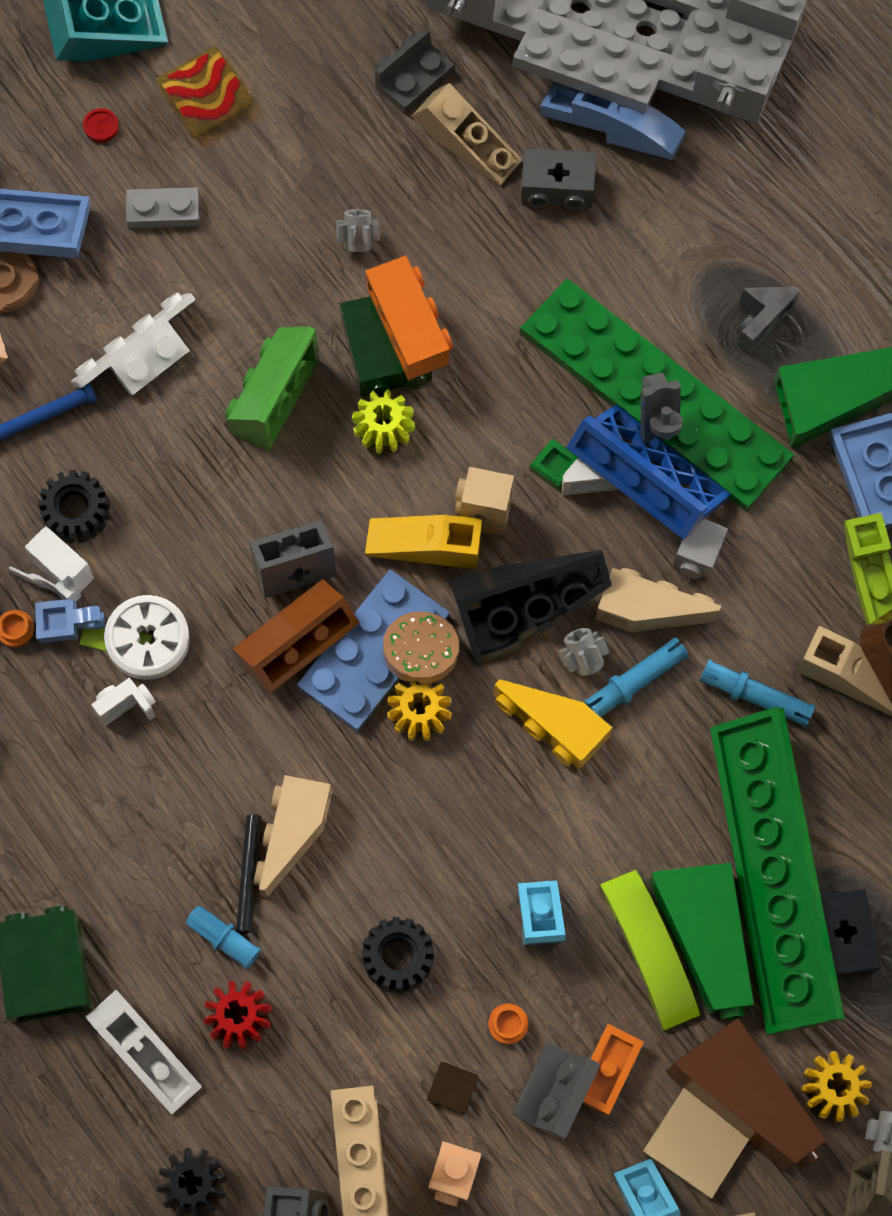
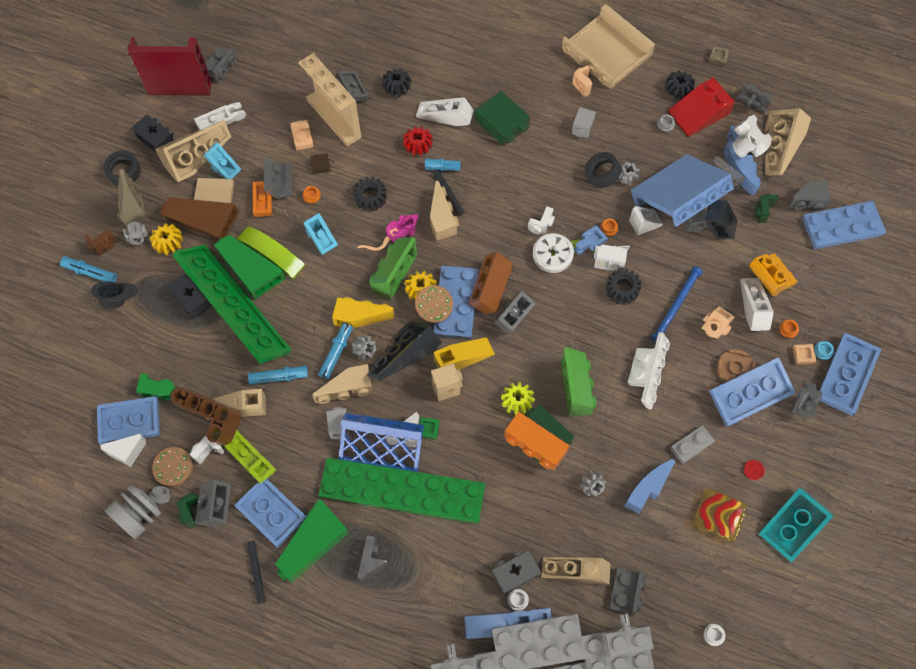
camera: 150 degrees right, 5 degrees down
(274, 182) = (649, 487): none -> medium blue slope
(396, 837) = (397, 229): none -> dark pink animal
(446, 766) = (394, 267): none -> bright green slope
(577, 141) = (518, 599): none -> white plate
(660, 408) = (389, 464): dark grey hips -> none

